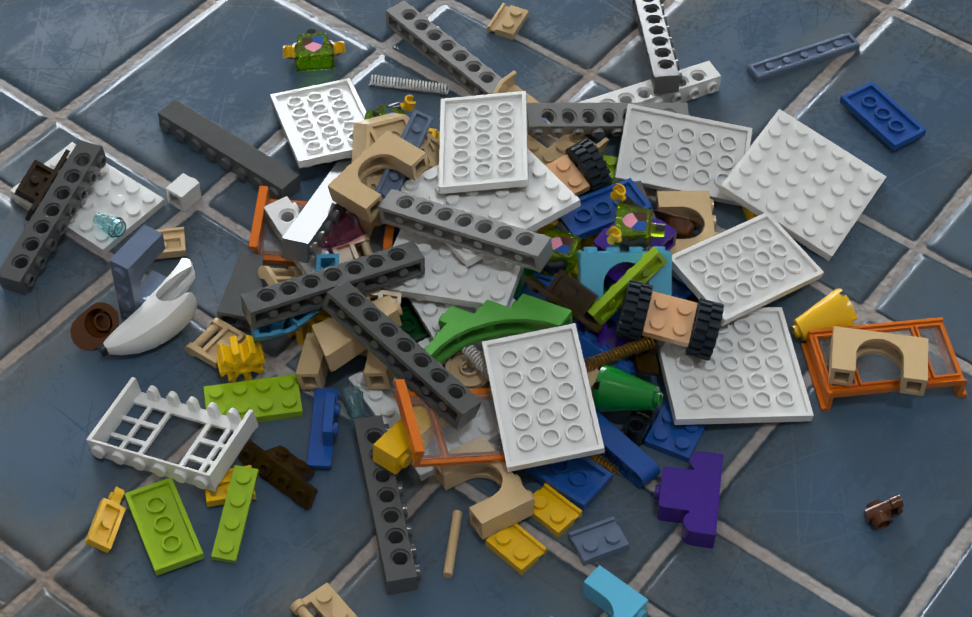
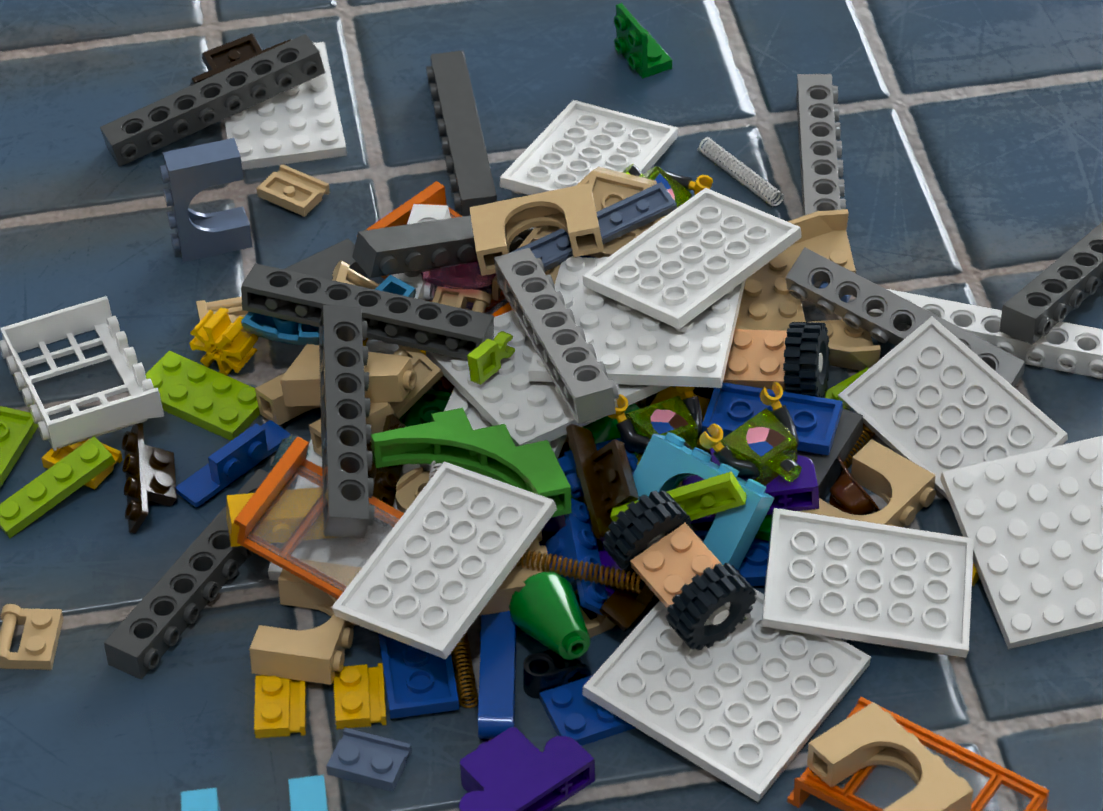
camera: 45 degrees right, 5 degrees down
(94, 326) = (136, 230): reddish brown piece -> none
(110, 224) = (256, 140): clear light blue cone -> none
(158, 317) = (201, 253): white piece -> none
(183, 192) = (371, 150): white brick -> none
(269, 39) = (638, 45): none -> green bracket
(313, 51) = (669, 78): clear neon green torso -> none
(432, 270) = (486, 358): none -> lime plate
(452, 544) = (216, 662): tan bar -> none
(508, 21) = (940, 164): tan plate -> none
(827, 313) = (911, 695): yellow cone -> none

